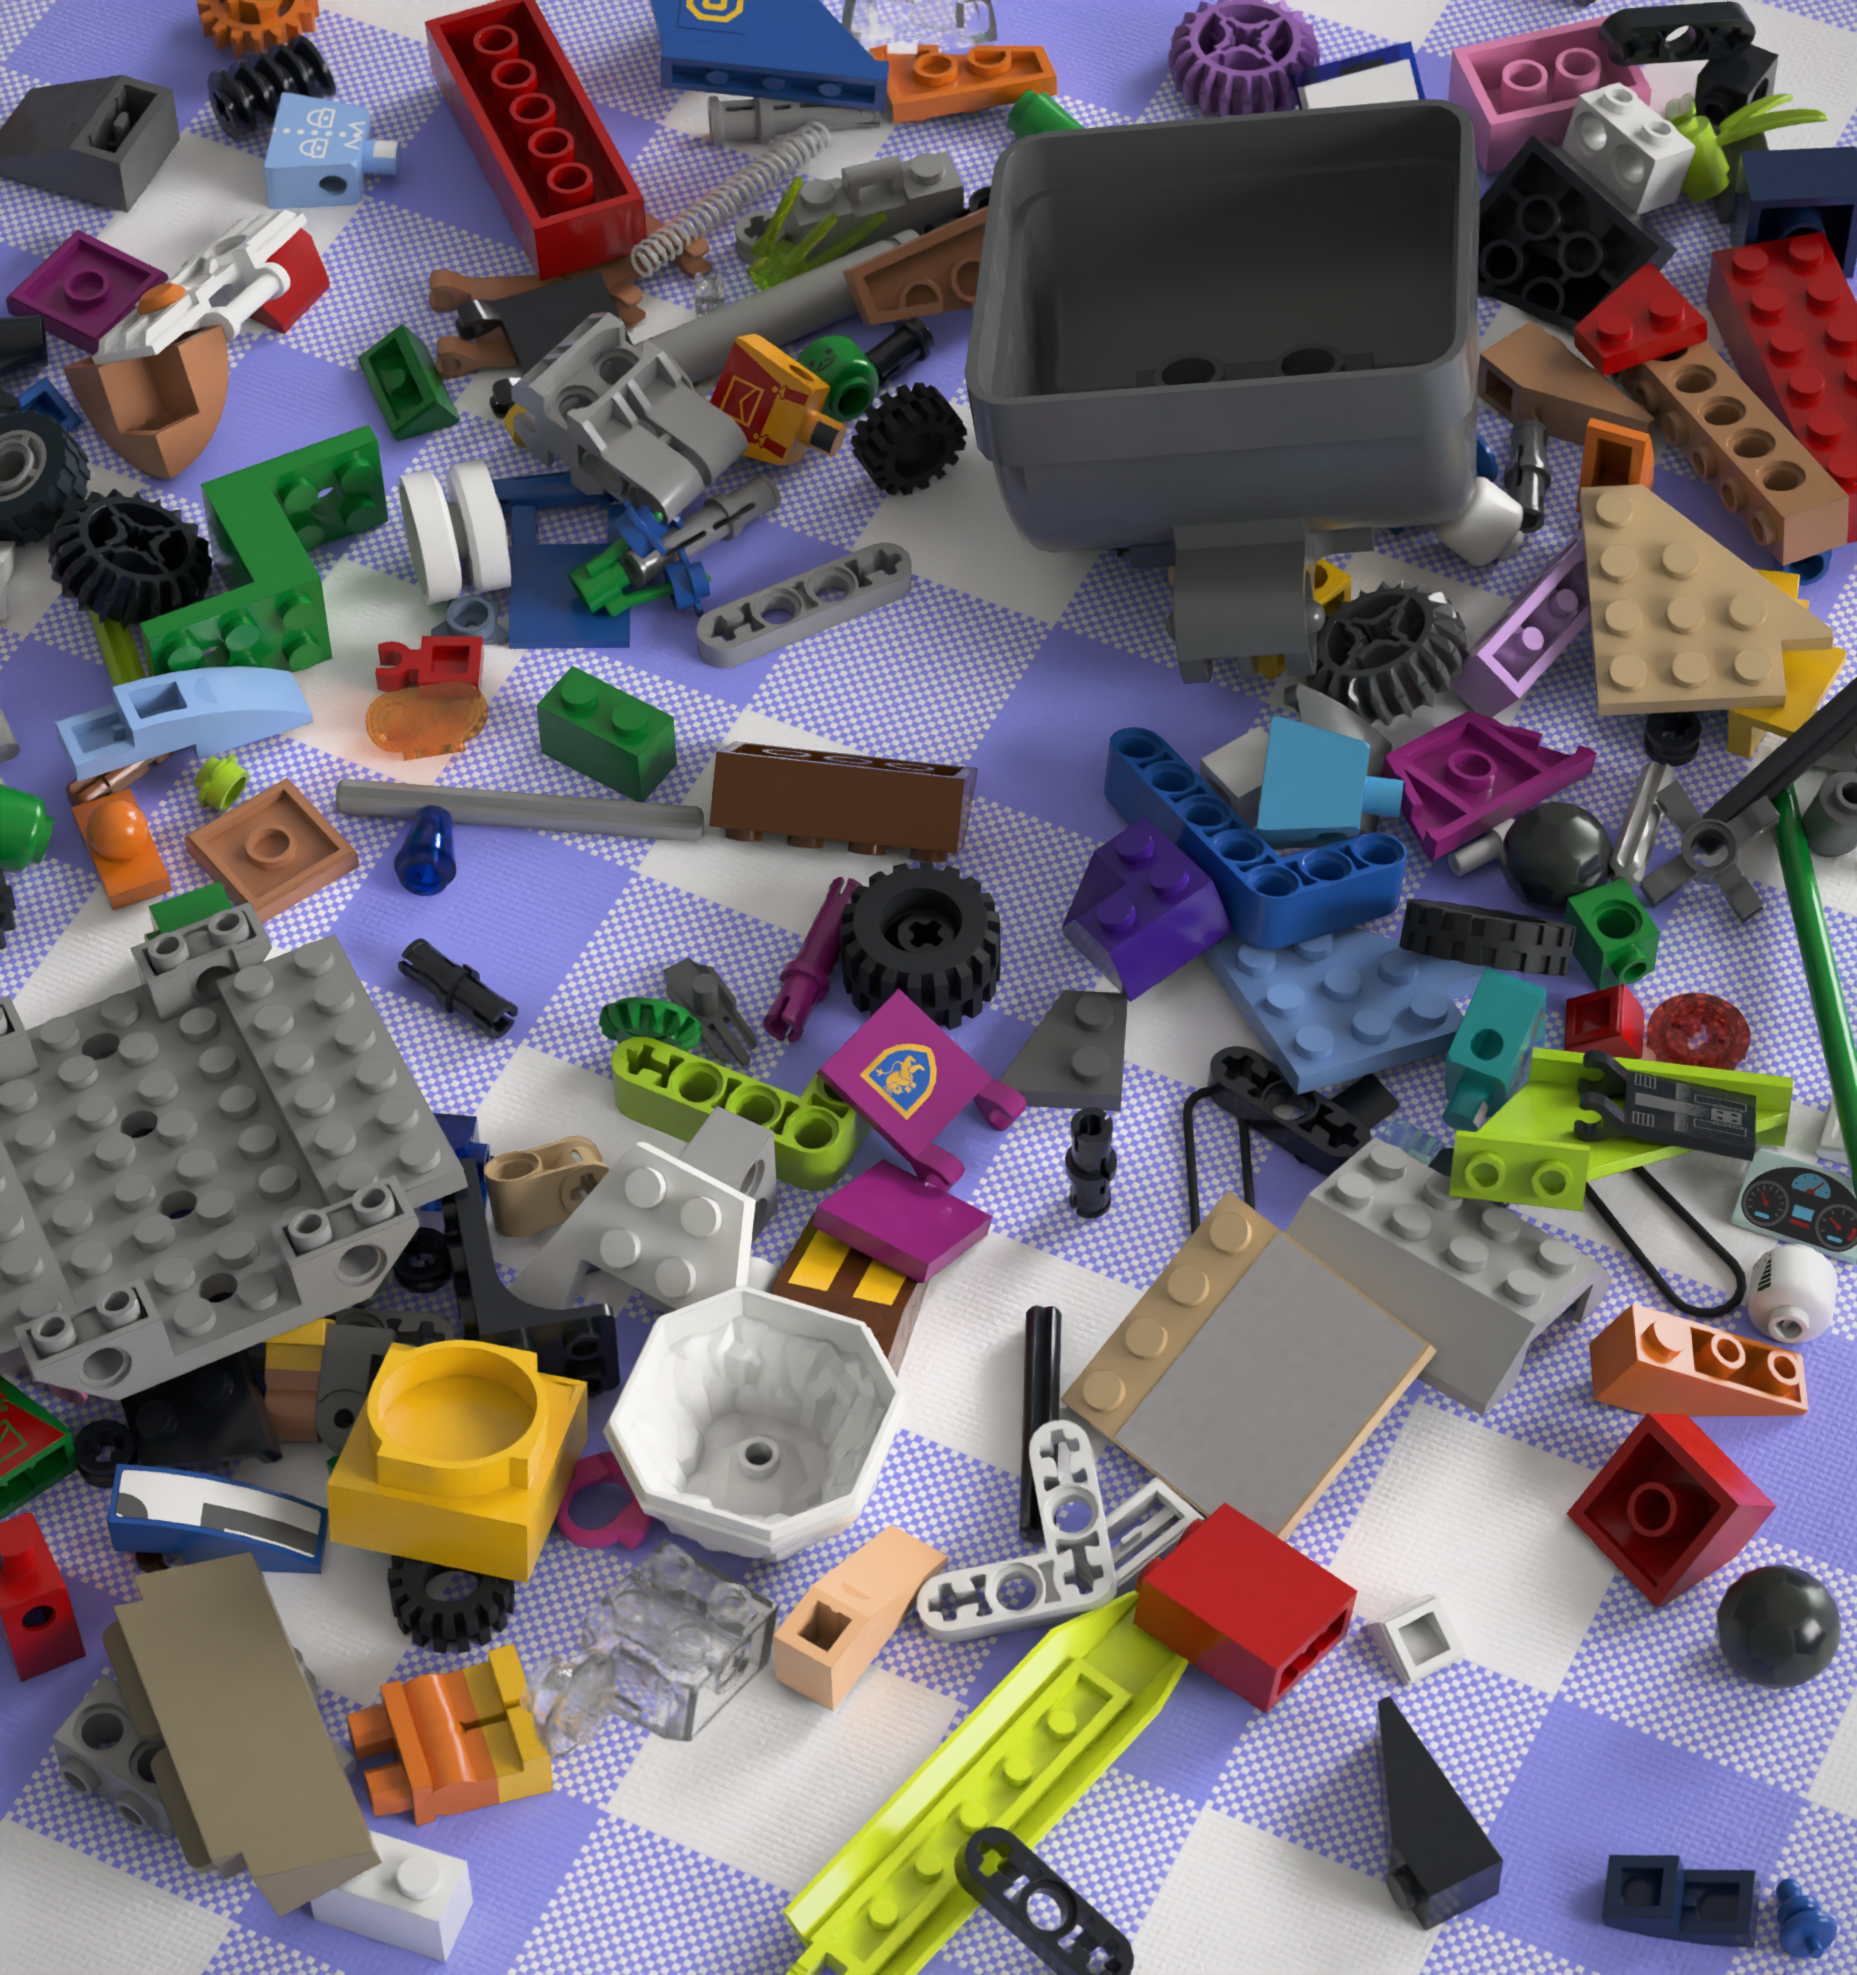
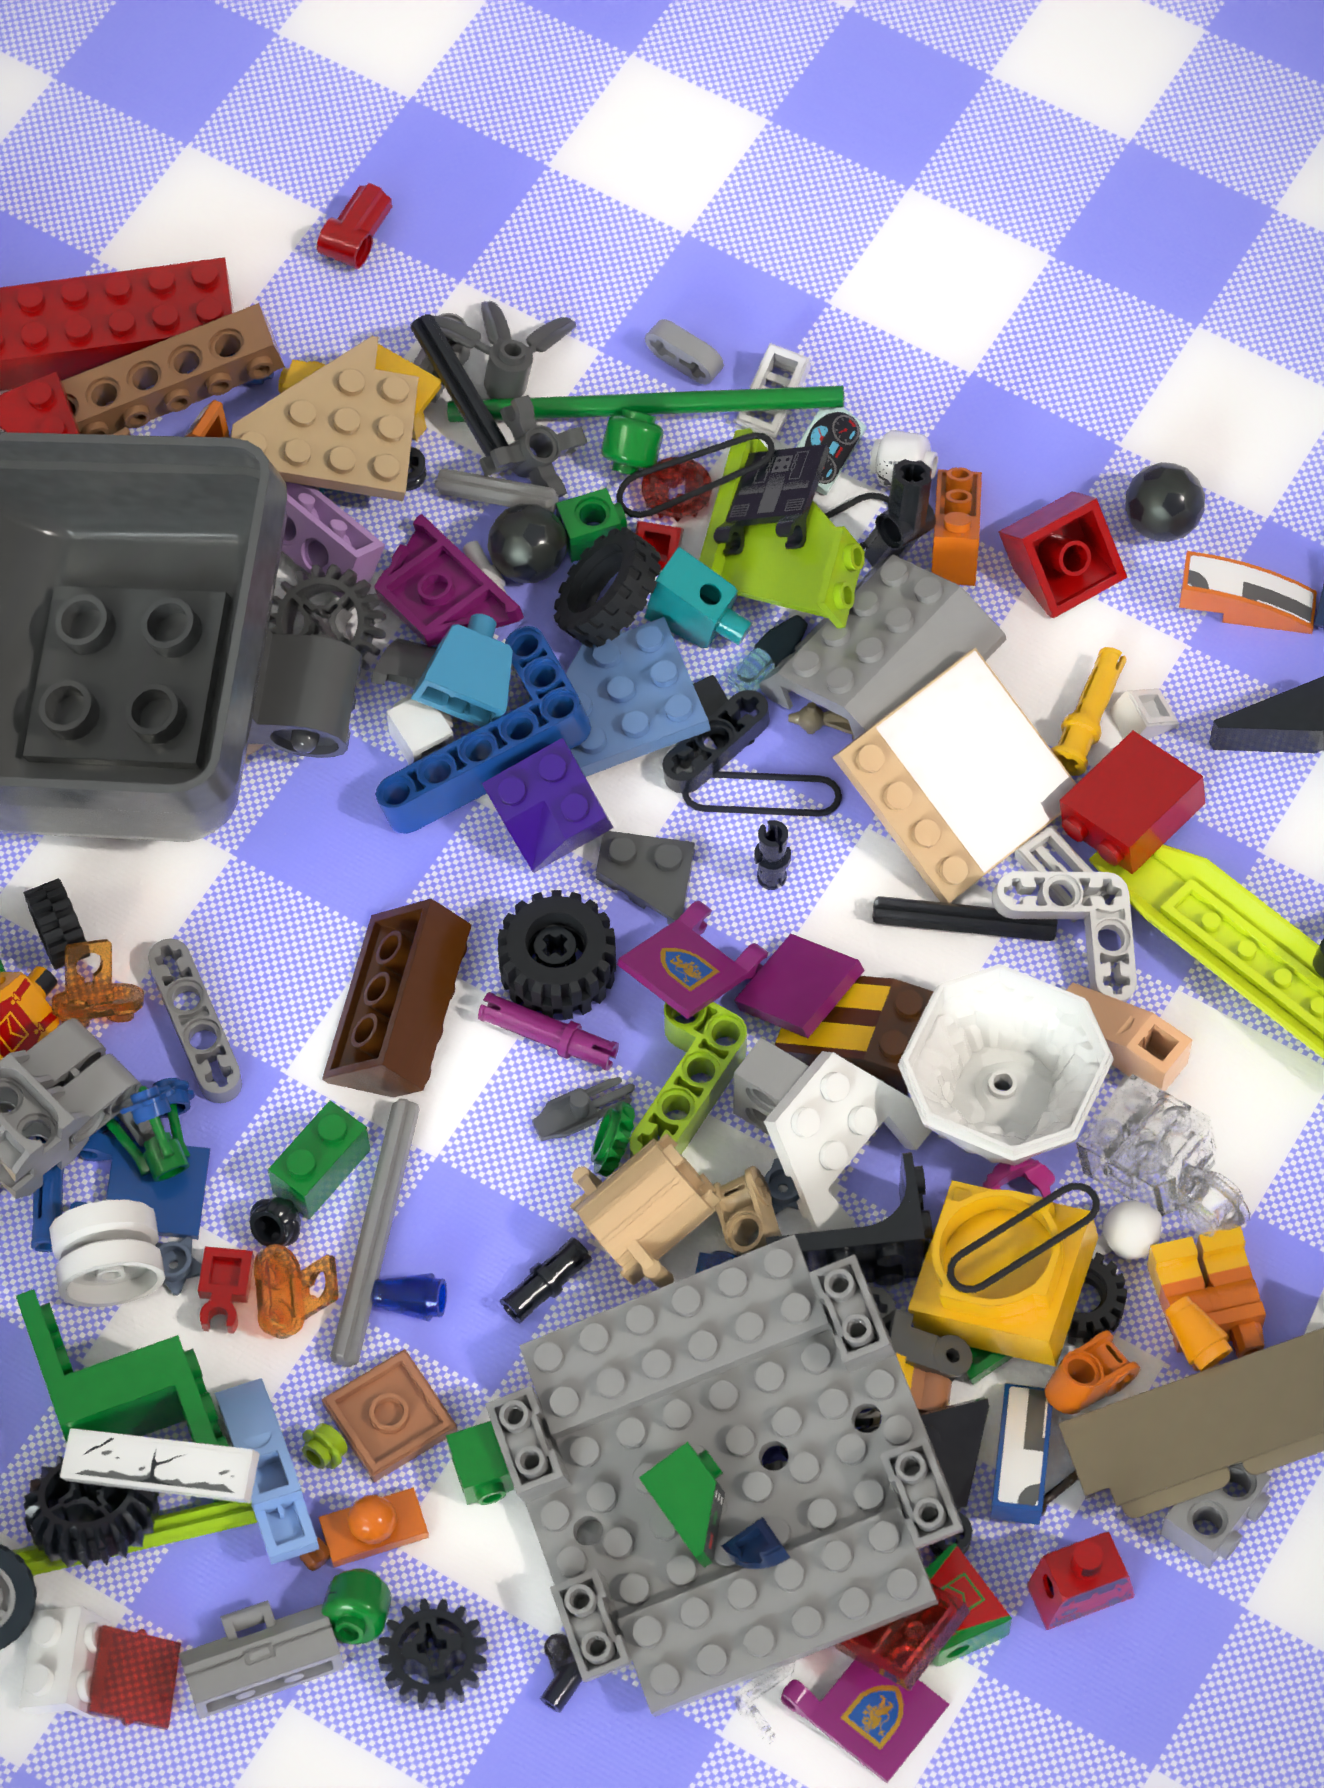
camera: 85 degrees left, 10 degrees up
(44, 1186) = (756, 1547): none -> dark blue tile
(101, 1108) = (689, 1497): none -> green slope
(149, 581) = (160, 1465): none -> white tile
(335, 1598) = (1089, 1375): none -> orange piece
(366, 1691) = (1197, 1334): none -> light orange cone
(447, 1446) = (1032, 1254): none -> black piece
(516, 701) = (275, 1221): none -> black piece
(532, 1051) = (645, 1208): none -> tan container
(545, 1626) = (1129, 1230): none -> white piece
(815, 491) = (95, 998): none -> clear orange bracket
(1371, 1548) = (1082, 726): none -> yellow pin
(1641, 1748) = (1246, 594): none -> slope
(1658, 1252) = (907, 513): none -> black piece
(1689, 1053) = (637, 514): none -> black piece
(1755, 965) = (632, 441): none -> green head

